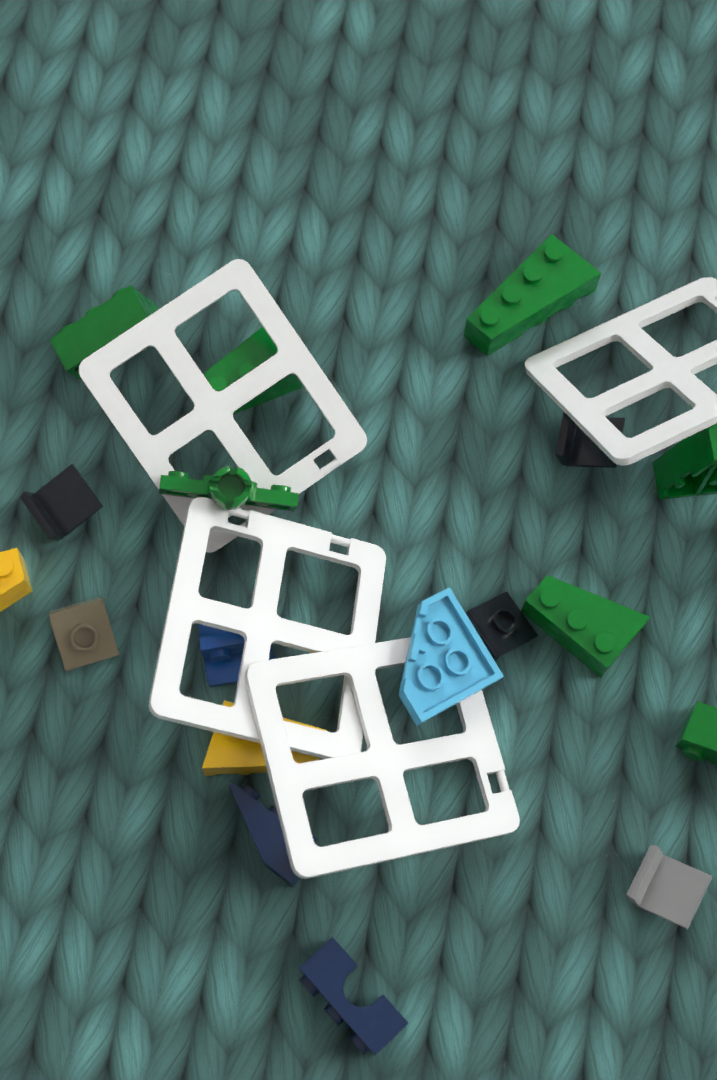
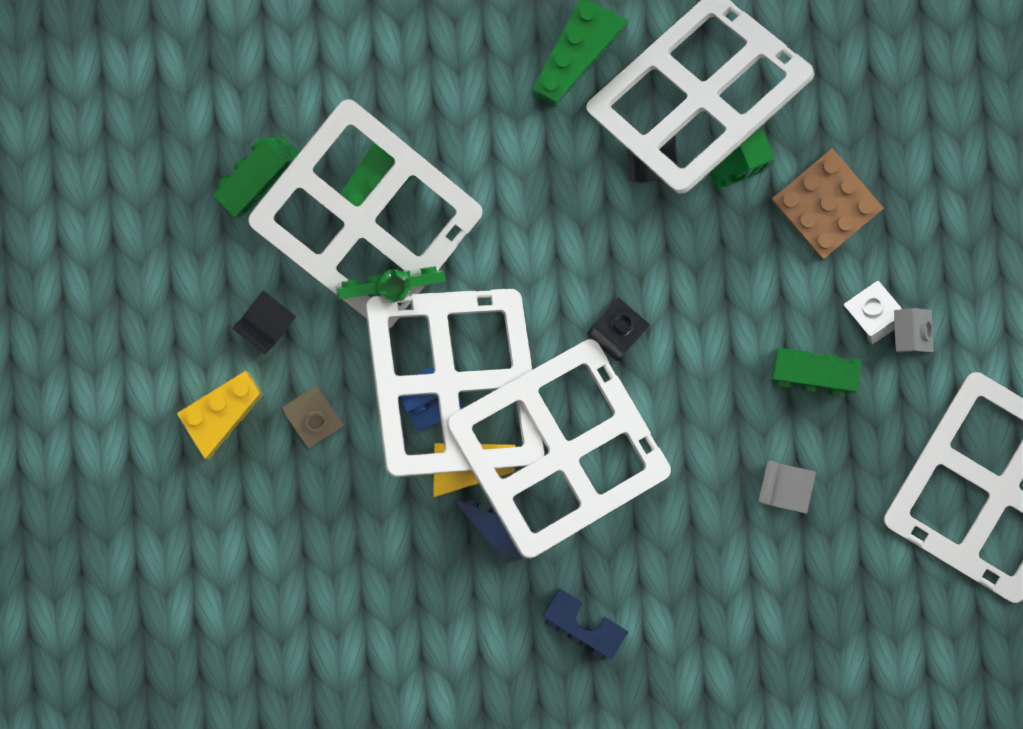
camera: 15 degrees left, 15 degrees up
(444, 659) = (586, 367): medium azure plate -> none
(583, 622) = (682, 309): green wedge -> none

